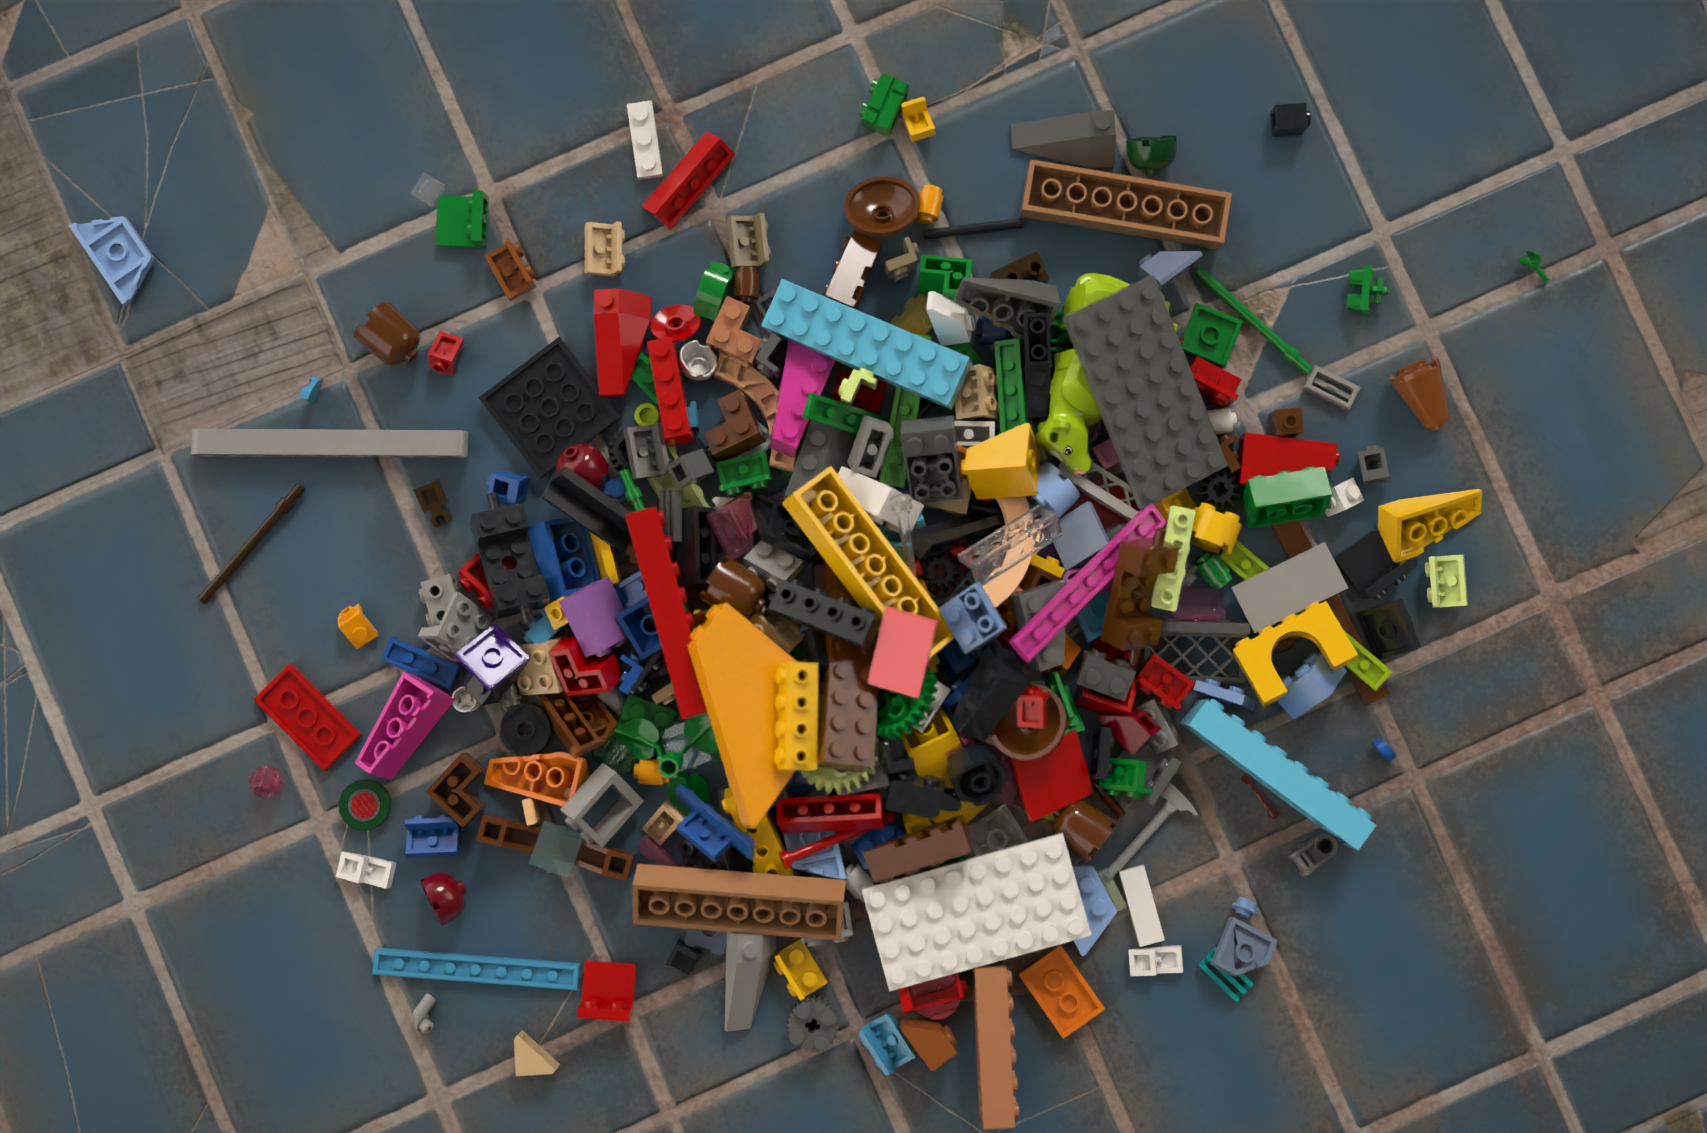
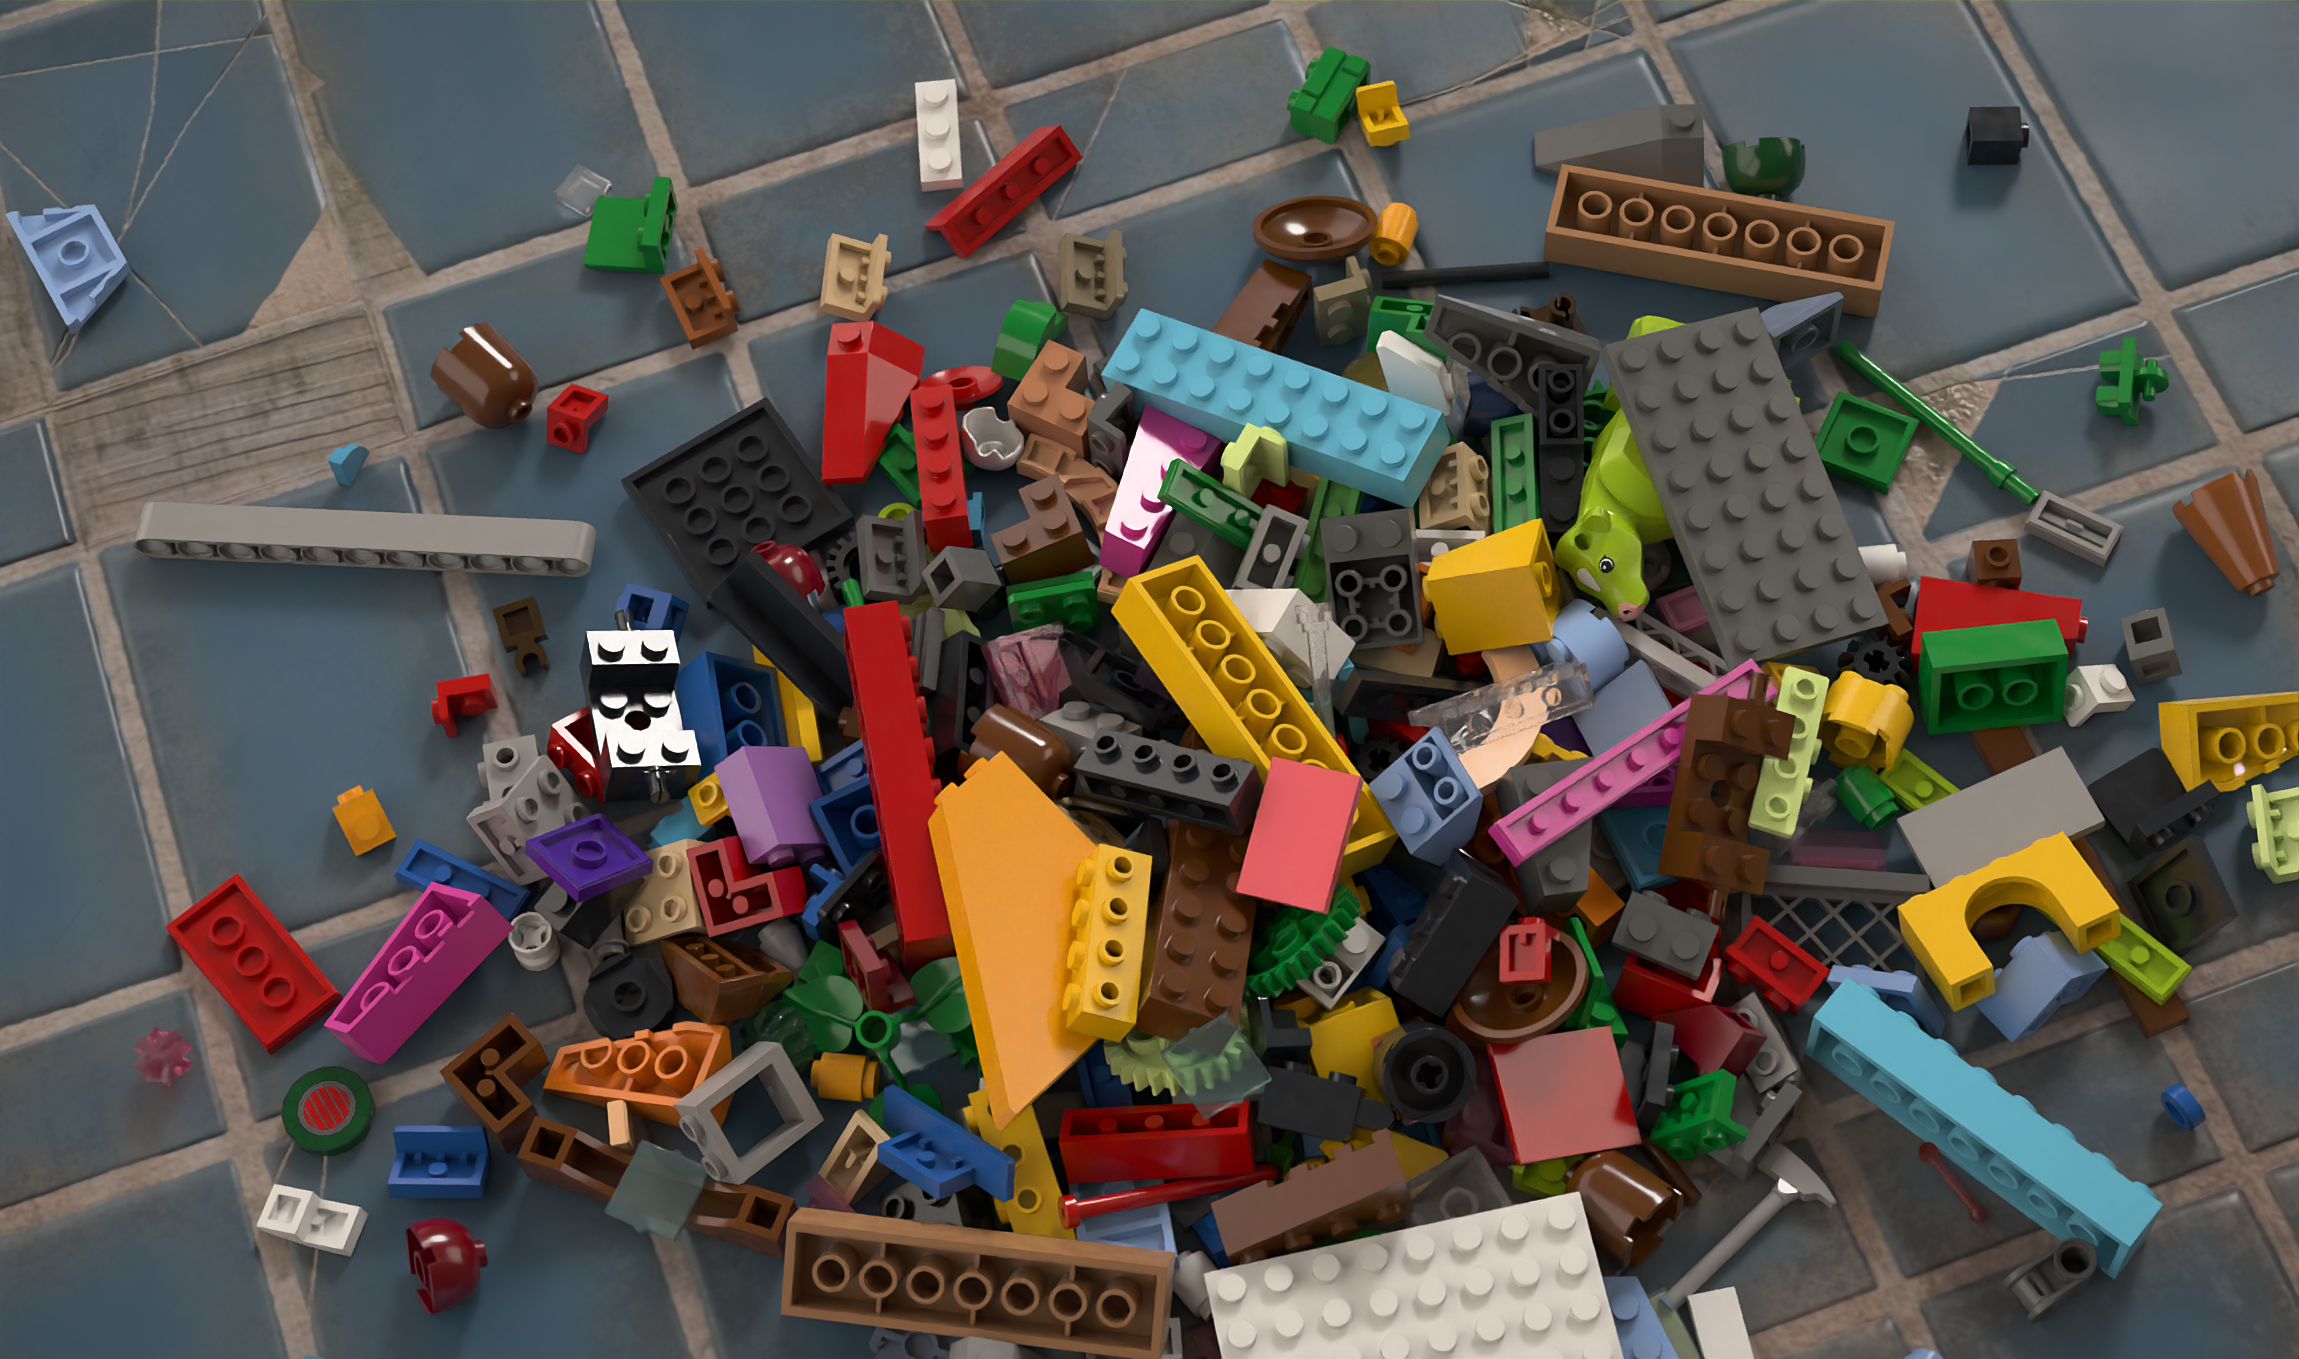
camera: 10 degrees right, 25 degrees down
(284, 506) = (271, 631): dark brown bar -> none
(407, 546) = (462, 696): none -> red bracket
(665, 722) = (873, 971): none -> dark red bracket
(746, 284) = (1085, 331): reddish brown brick -> none
(862, 785) = (1215, 1065): none -> clear light blue piece
(1215, 382) = (1869, 510): red bracket -> none

